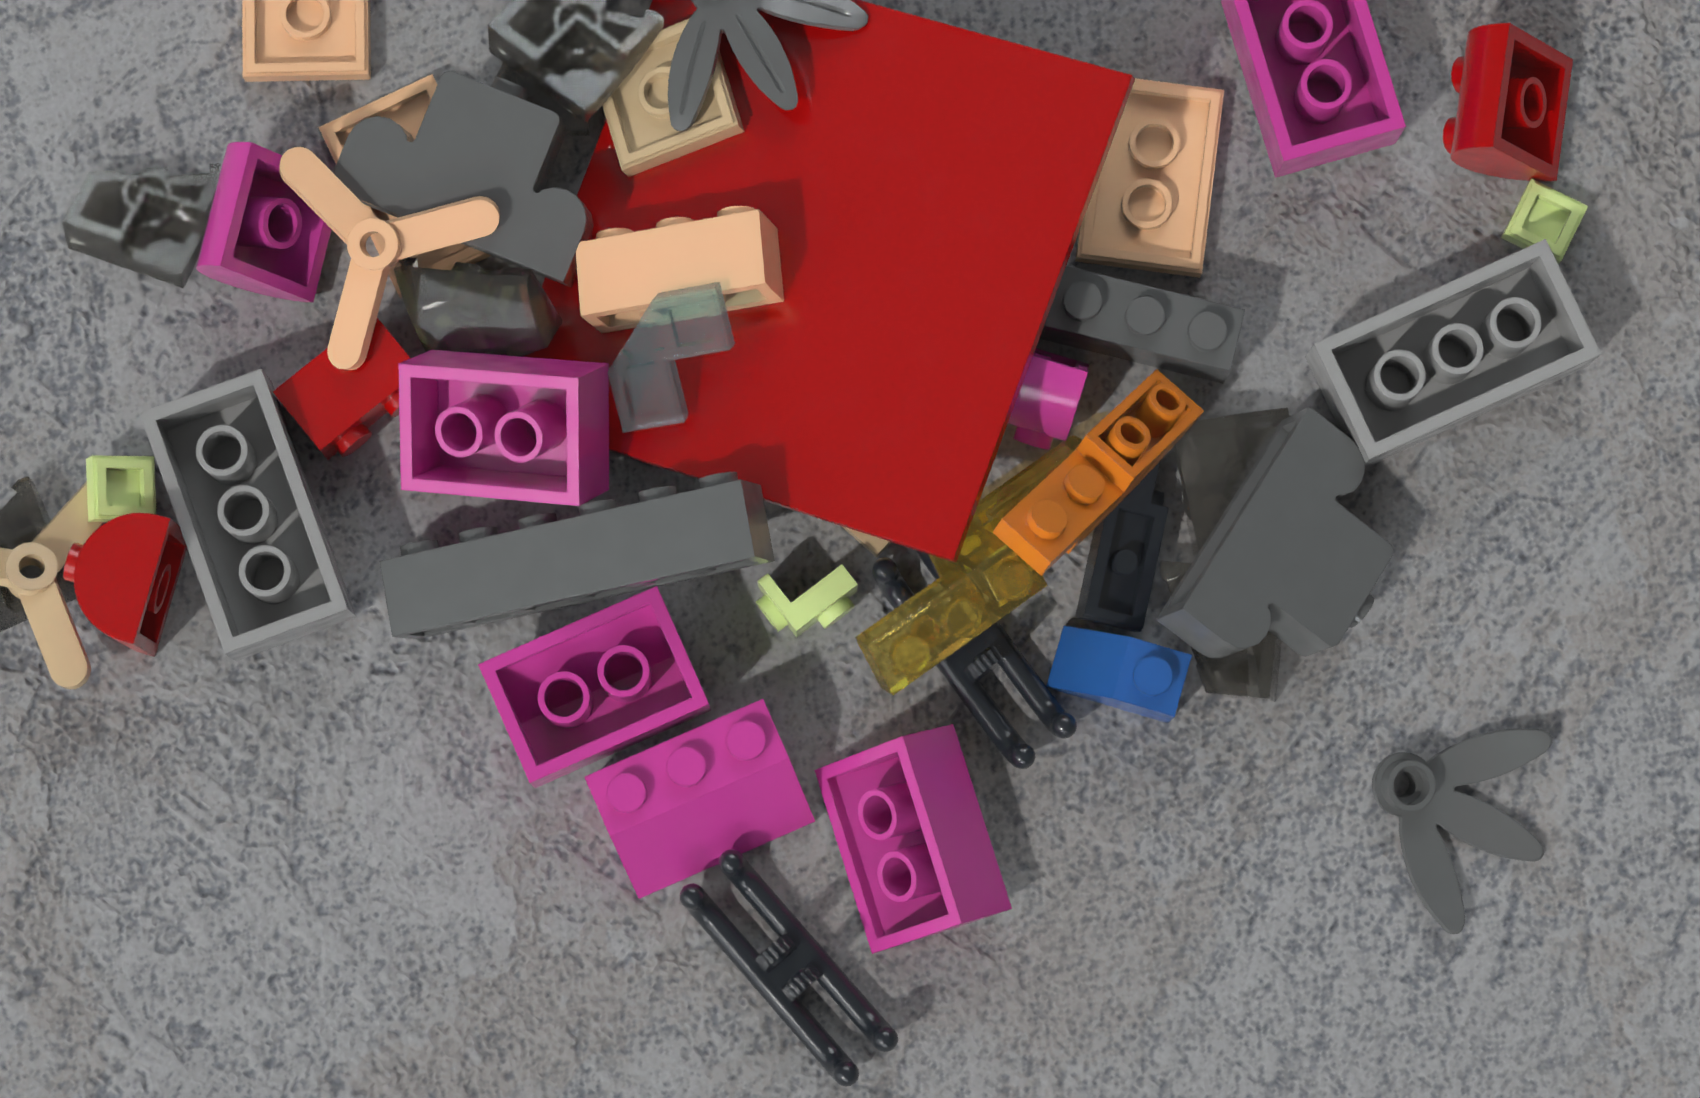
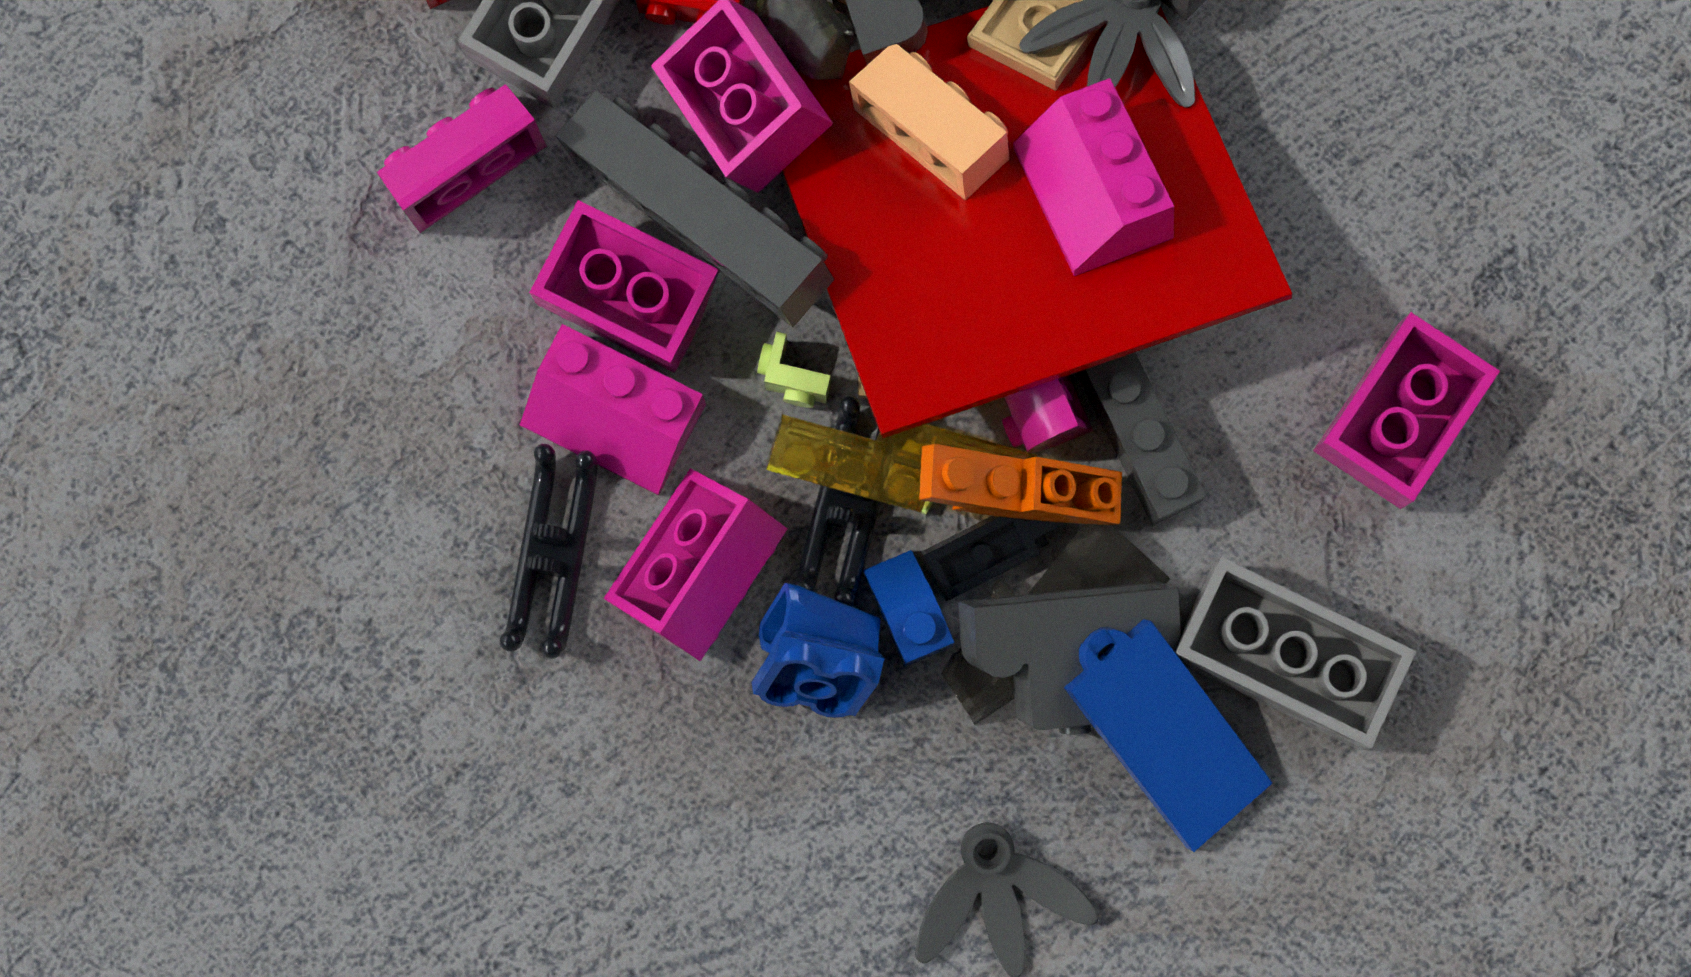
camera: 55 degrees right, 0 degrees up
(332, 742) = (461, 156): none -> dark pink slope
(672, 328) = (848, 148): clear light blue tile -> none
(870, 165) = (1095, 179): none -> dark pink slope
(1096, 791) = (818, 653): none -> blue piece
(1156, 182) = (1246, 372): light nougat tile -> none
(1430, 528) = (1165, 731): none -> blue piece
(1508, 105) = (1487, 560): red brick -> none
(1544, 215) = (1435, 645): yellowish green tile -> none

